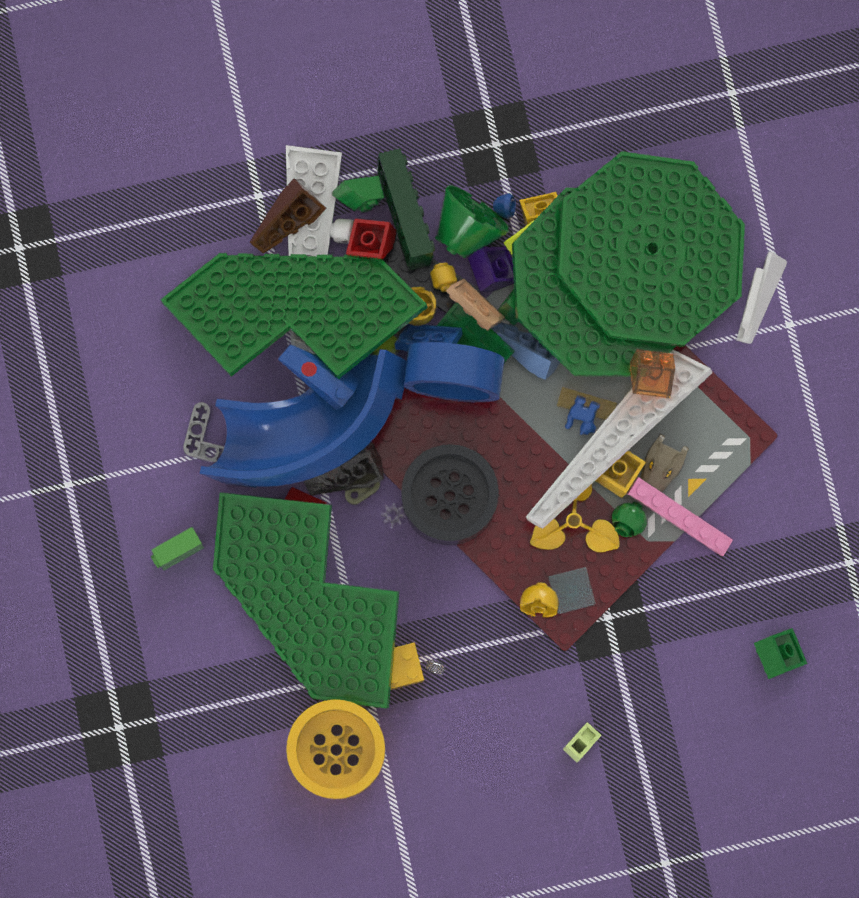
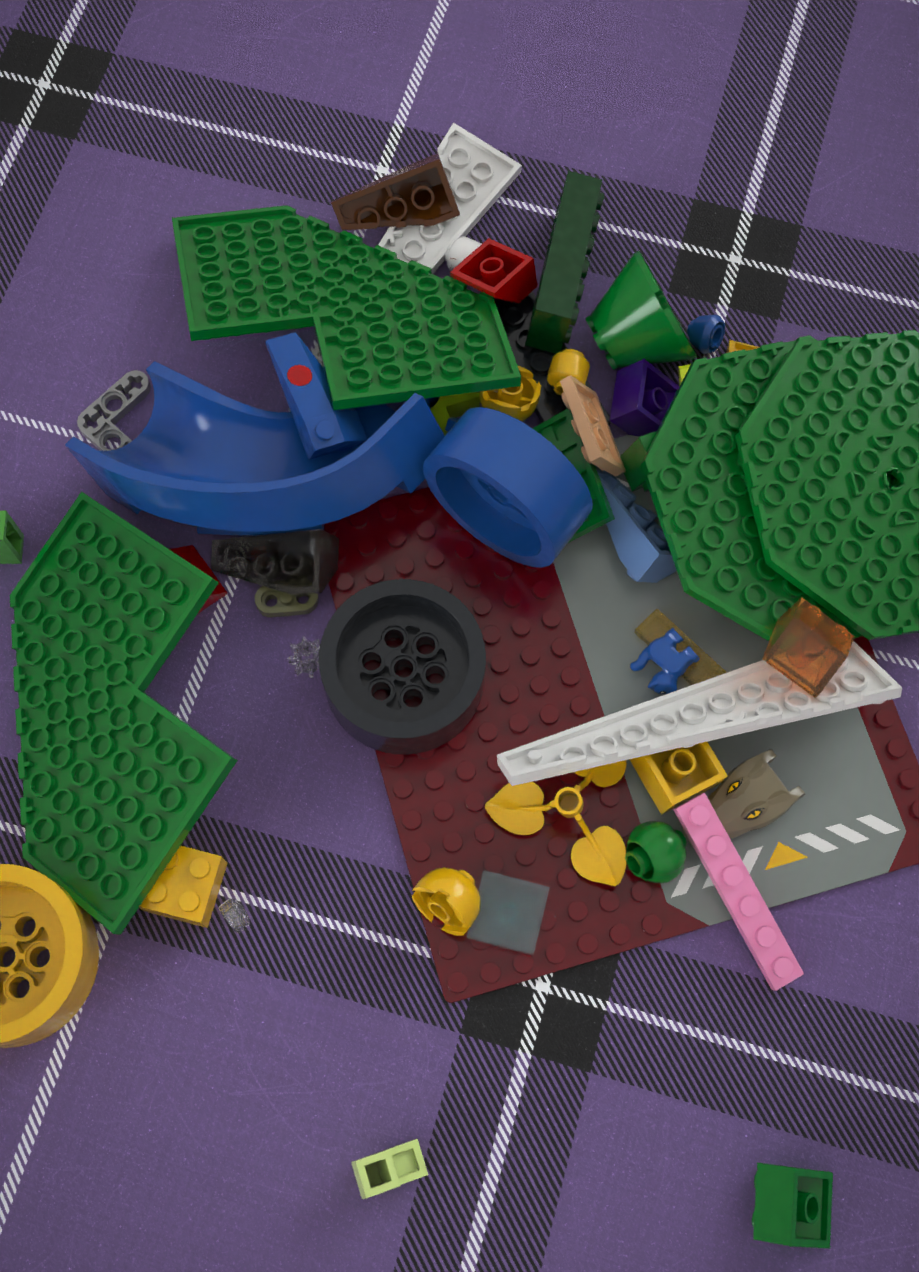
camera: 30 degrees right, 10 degrees down
(360, 193) = (514, 213): green slope -> none

